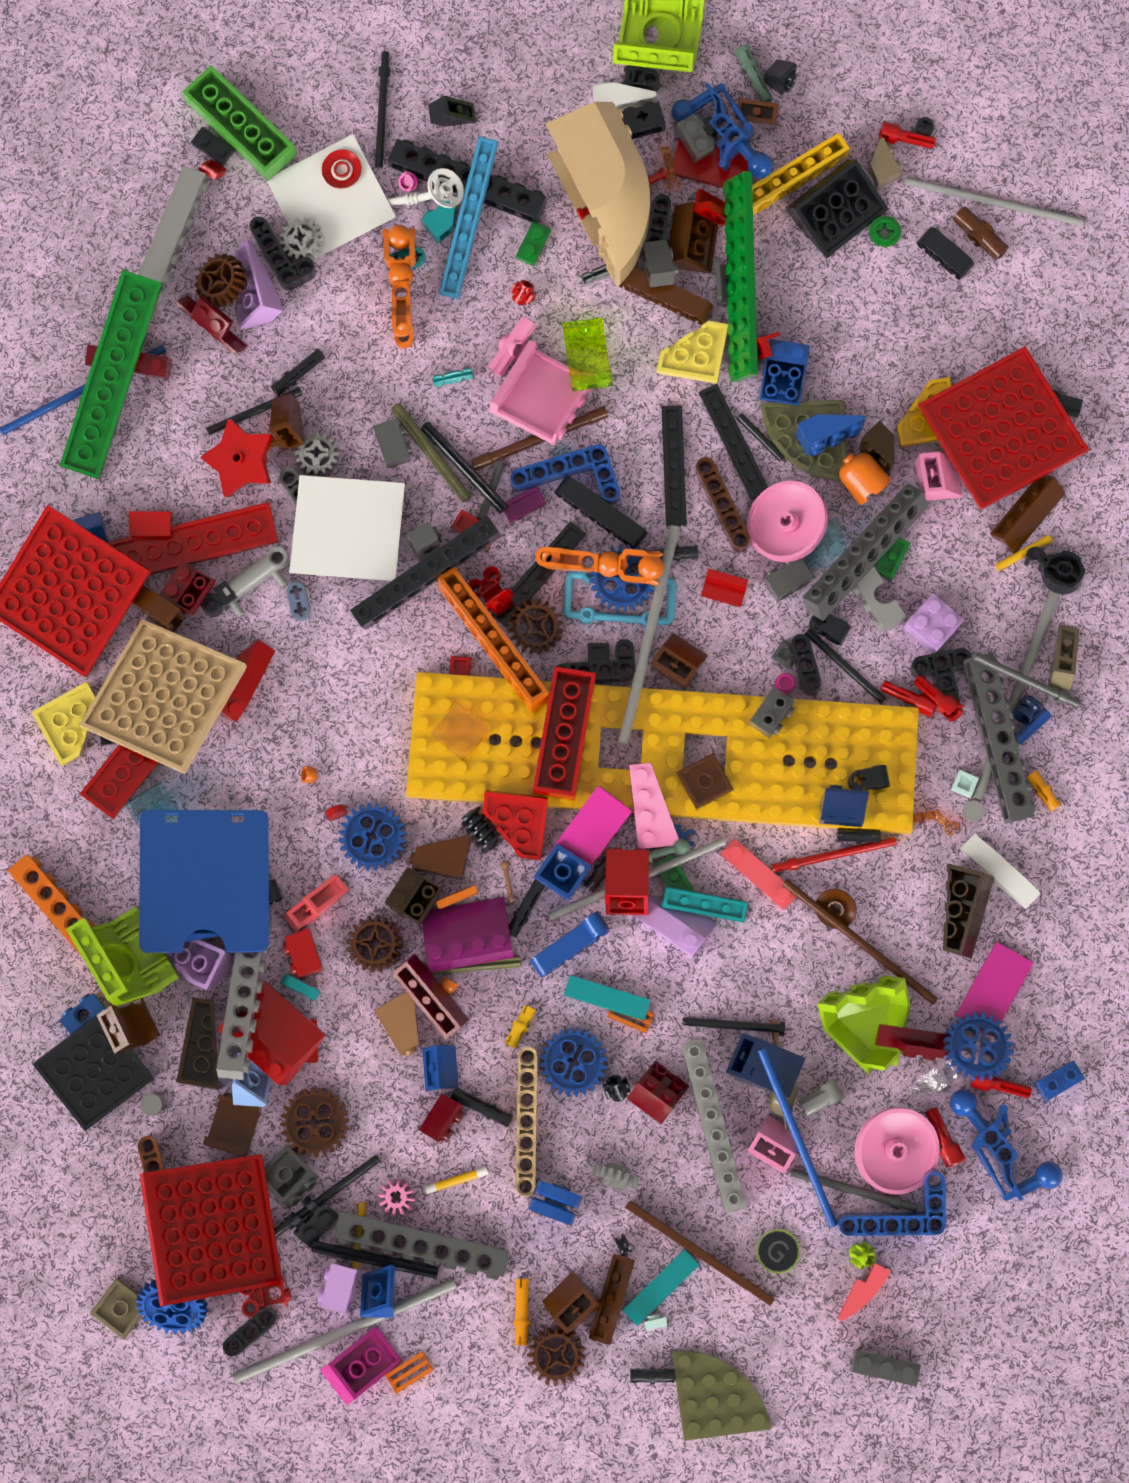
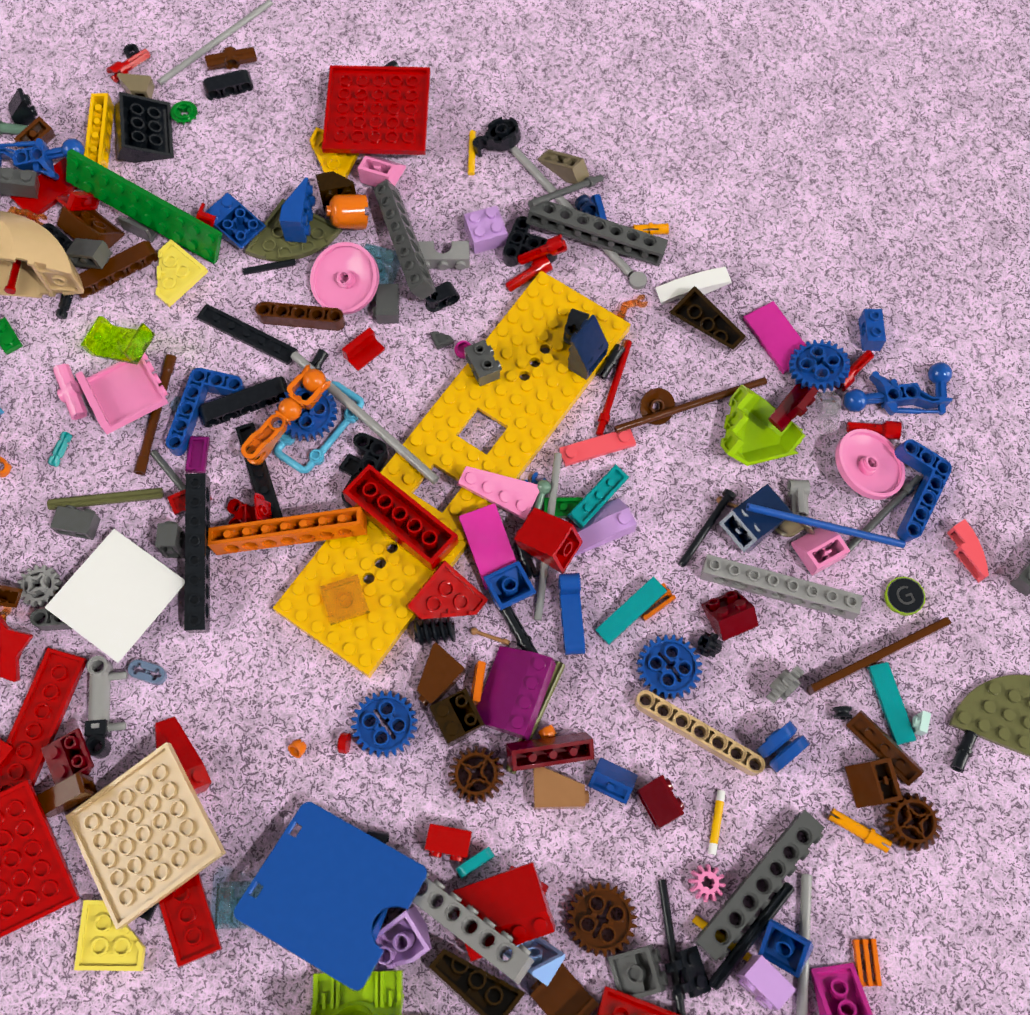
camera: 65 degrees left, 10 degrees down
(316, 903) = (411, 806): coral slope -> none
(460, 665) = (289, 573): red tile -> none
(464, 467) = (135, 479): black axle -> none
(477, 1104) = (672, 759): black pin -> none
(520, 1026) = (615, 693): yellow pin -> none
(523, 292) = (35, 361): red gear -> none
(542, 633) = (313, 492): reddish brown gear -> none
(678, 661) = (398, 411): reddish brown slope -> none
(704, 781) = (503, 440): reddish brown tile -> none
(733, 441) = (258, 285): black tile -> none
(805, 654) = (452, 321): black beam -> none
(845, 666) = (476, 304): black piece -> none
(862, 1255) = (939, 534): lime gear -> none
(891, 560) = (420, 229): green plate -> none
(964, 784) = (614, 274): light aqua plate -> none
(1028, 512) = (445, 134): reddish brown panel -> none

